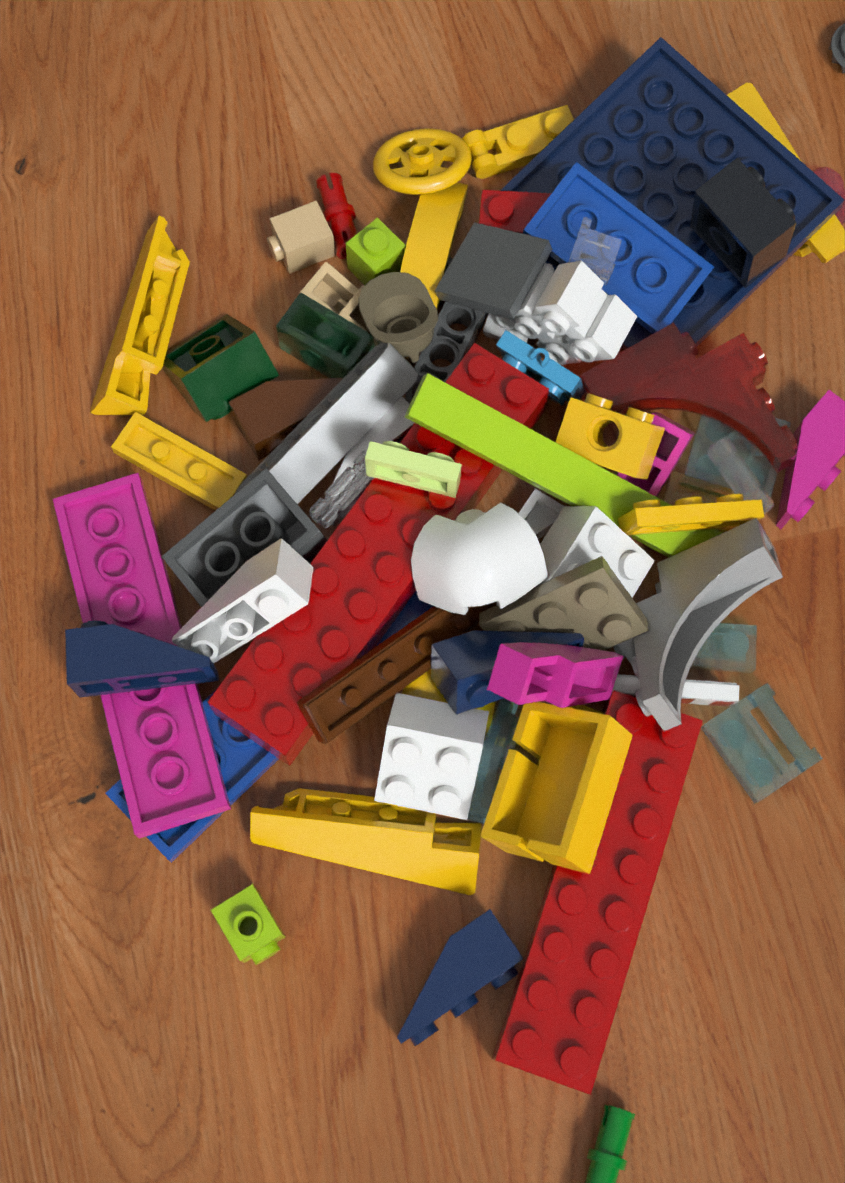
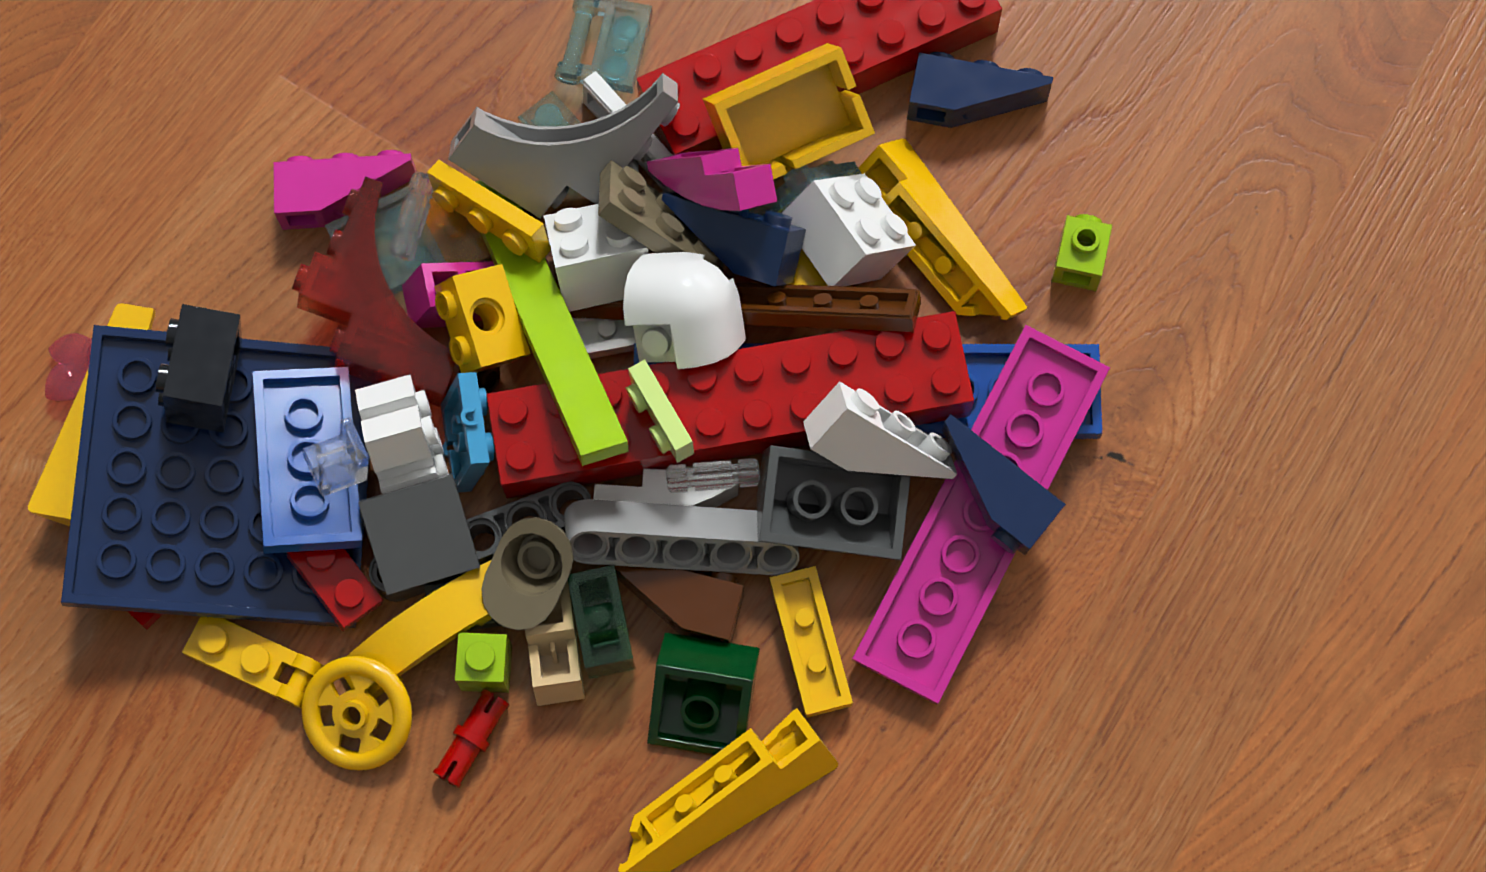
camera: 130 degrees left, 0 degrees up
(301, 237) = (524, 742): tan brick -> none

